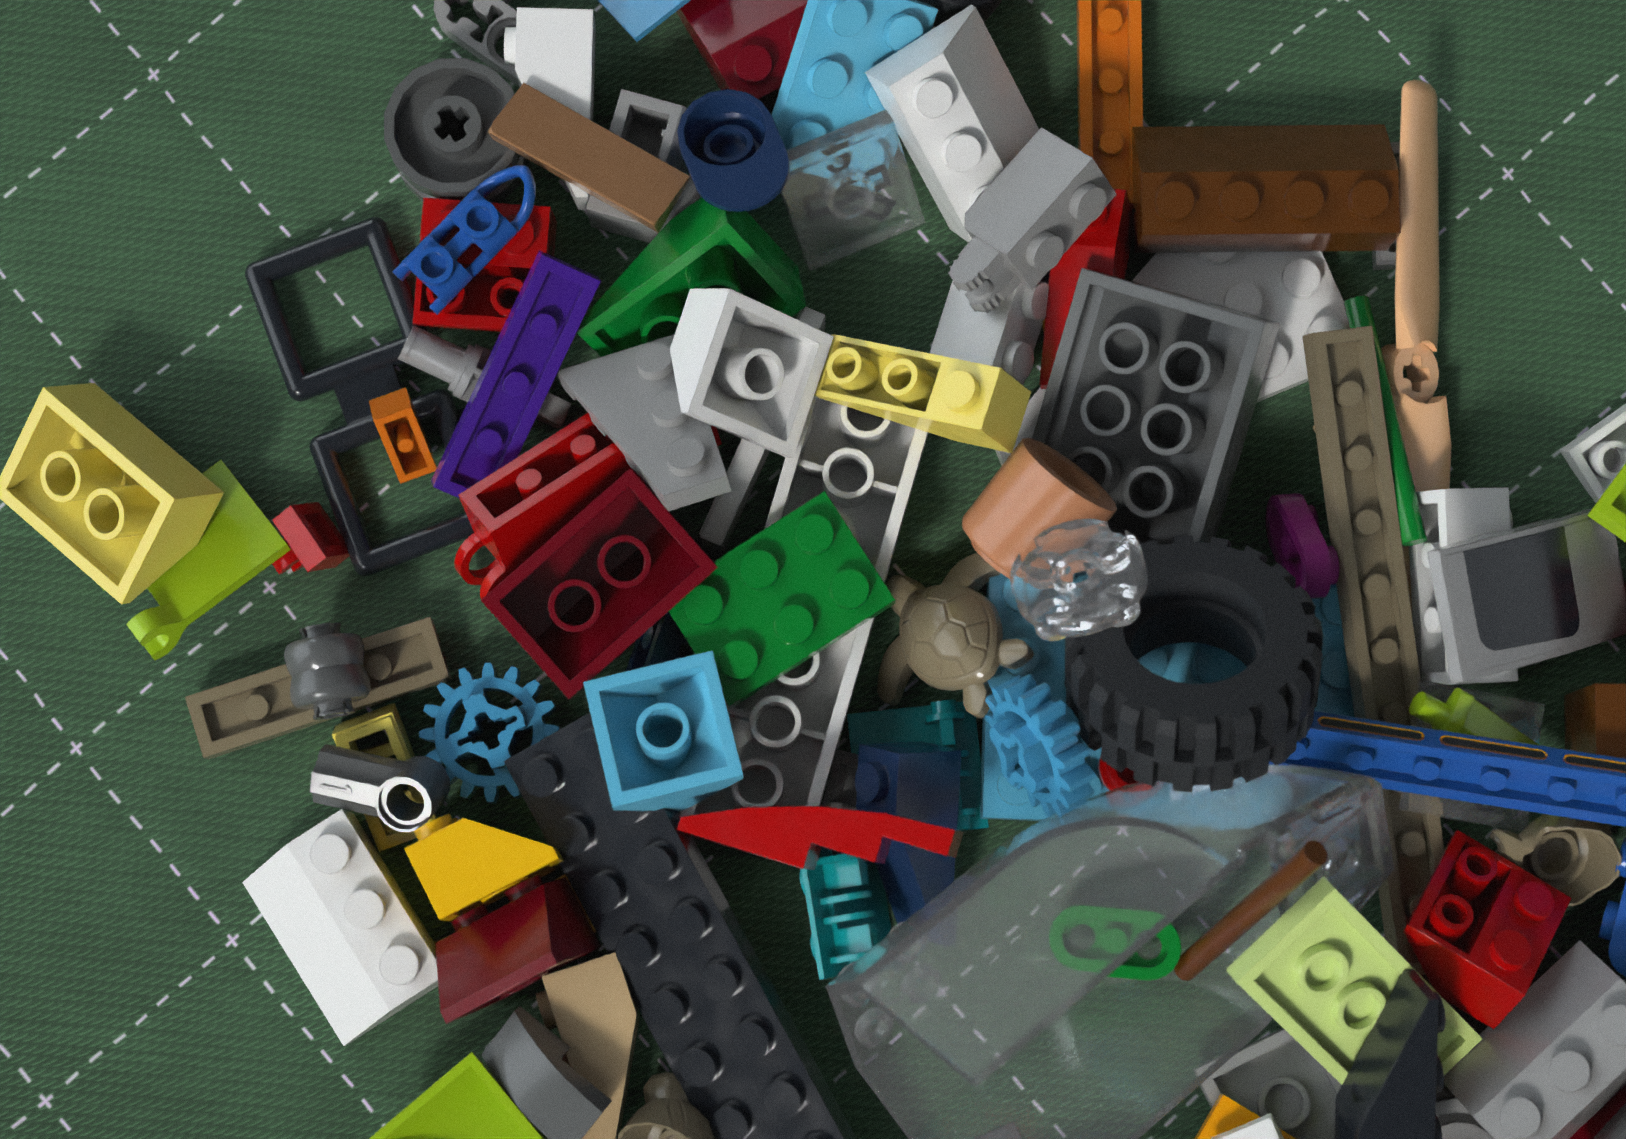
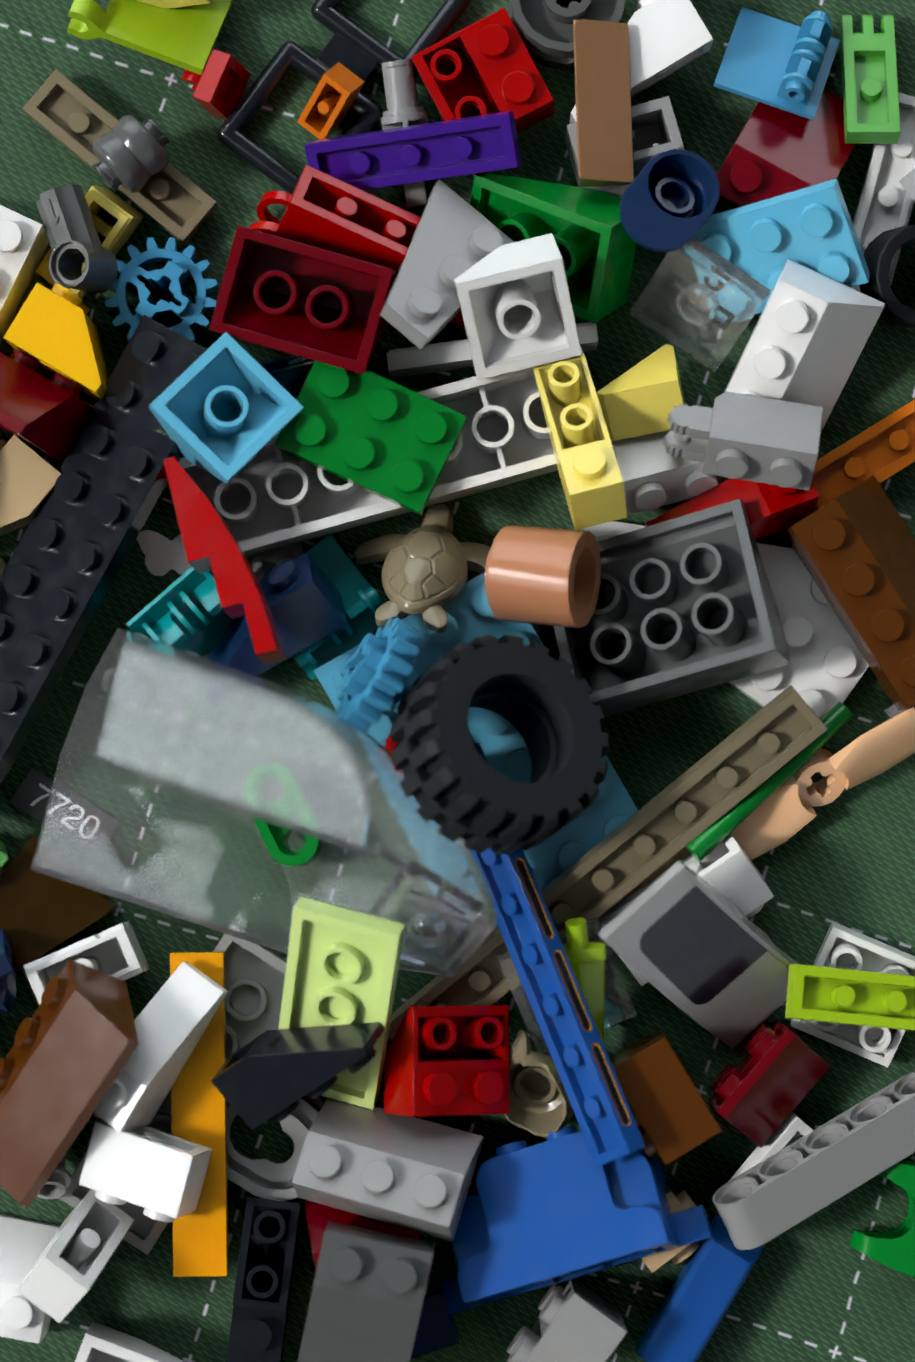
camera: 60 degrees right, 5 degrees up
(478, 225) = (506, 55): blue piece -> none
(761, 899) = (162, 553): none -> white sticker
(912, 299) = (642, 396): none -> light yellow slope
(1070, 609) = (492, 648): clear plate -> none
(1251, 909) = (353, 890): reddish brown bar -> none
(1299, 544) = (647, 770): magenta plate -> none

